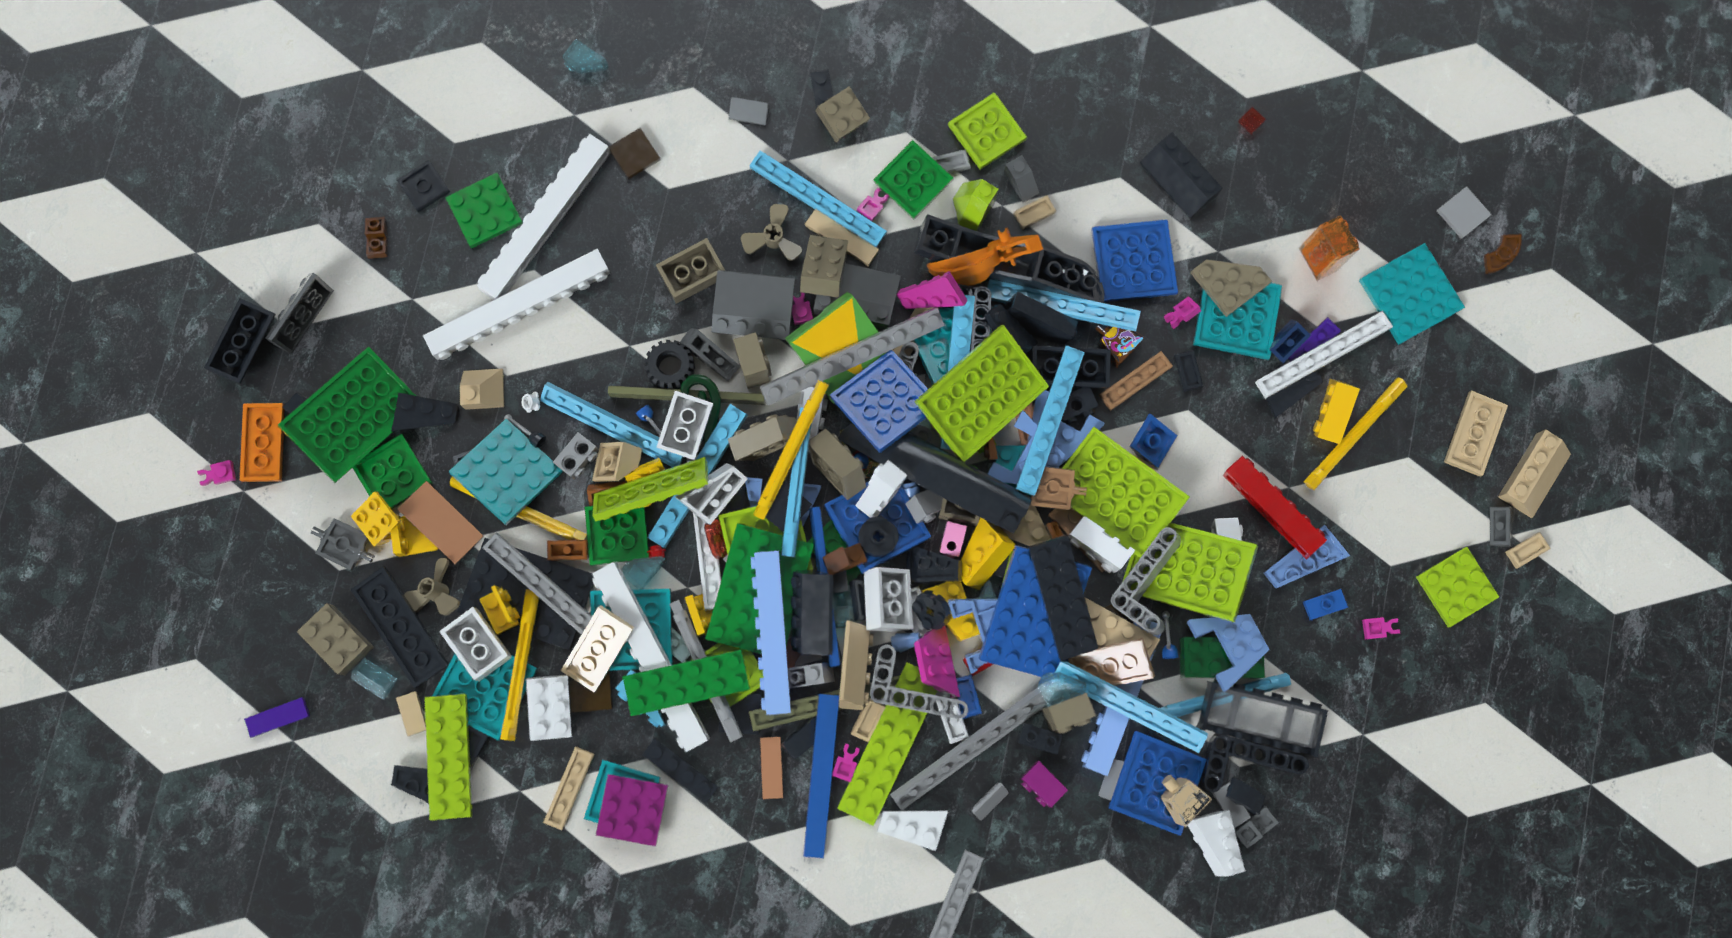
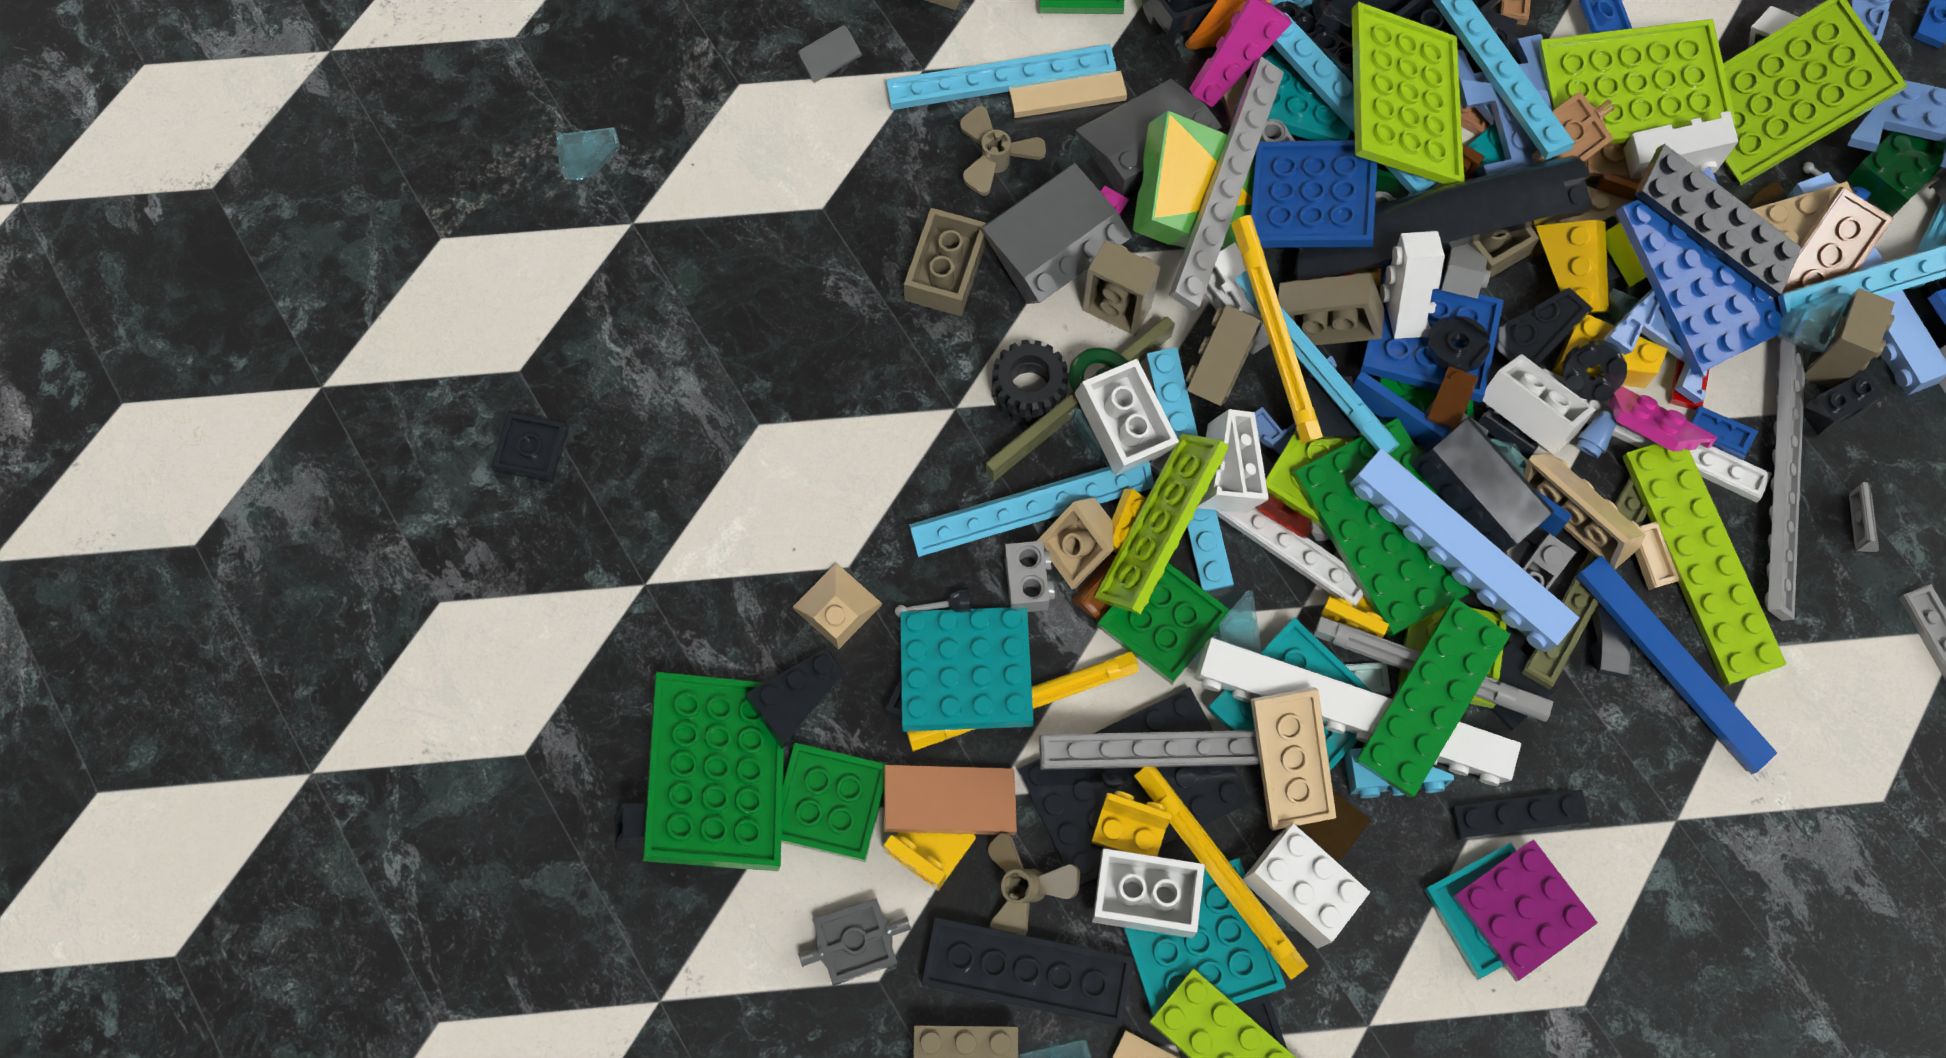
camera: 40 degrees left, 10 degrees down
(219, 473) = (609, 1006): dark pink plate -> none
(239, 341) = (483, 818): black slope -> none
(261, 442) = (627, 917): orange plate -> none
(299, 313) = (521, 717): dark grey slope -> none
(376, 237) = (530, 553): reddish brown slope -> none
(376, 519) = (872, 864): yellow bracket -> none
(484, 210) = (632, 410): green plate -> none
(516, 305) = (780, 478): white brick -> none
(531, 402) = (905, 572): white plate -> none
(544, 217) = (715, 359): white brick -> none
(567, 550) = (1130, 689): dark orange slope -> none
(569, 788) = (1421, 963): tan tile -> none
(634, 153) = (746, 203): dark brown tile -> none
(646, 414) = (1056, 461): blue hinge -> none
(656, 551) = (1230, 596): red plate -> none
(709, 353) = (1057, 329): dark grey slope -> none
(771, 767) = (1612, 711): nougat tile -> none
(824, 266) = (1089, 127): dark tan brick -> none
(845, 766) = (1685, 627): dark pink plate -> none
(872, 206) = (1065, 33): dark pink plate -> none
(909, 695) = (1677, 481): light grey beam -> none
(914, 826) = (1831, 618): white wedge -> none
(952, 532) = (1526, 281): bright pink torso -> none
(1043, 784) = (1899, 446): magenta brick -> none
(1145, 580) = (1761, 143): light grey beam -> none

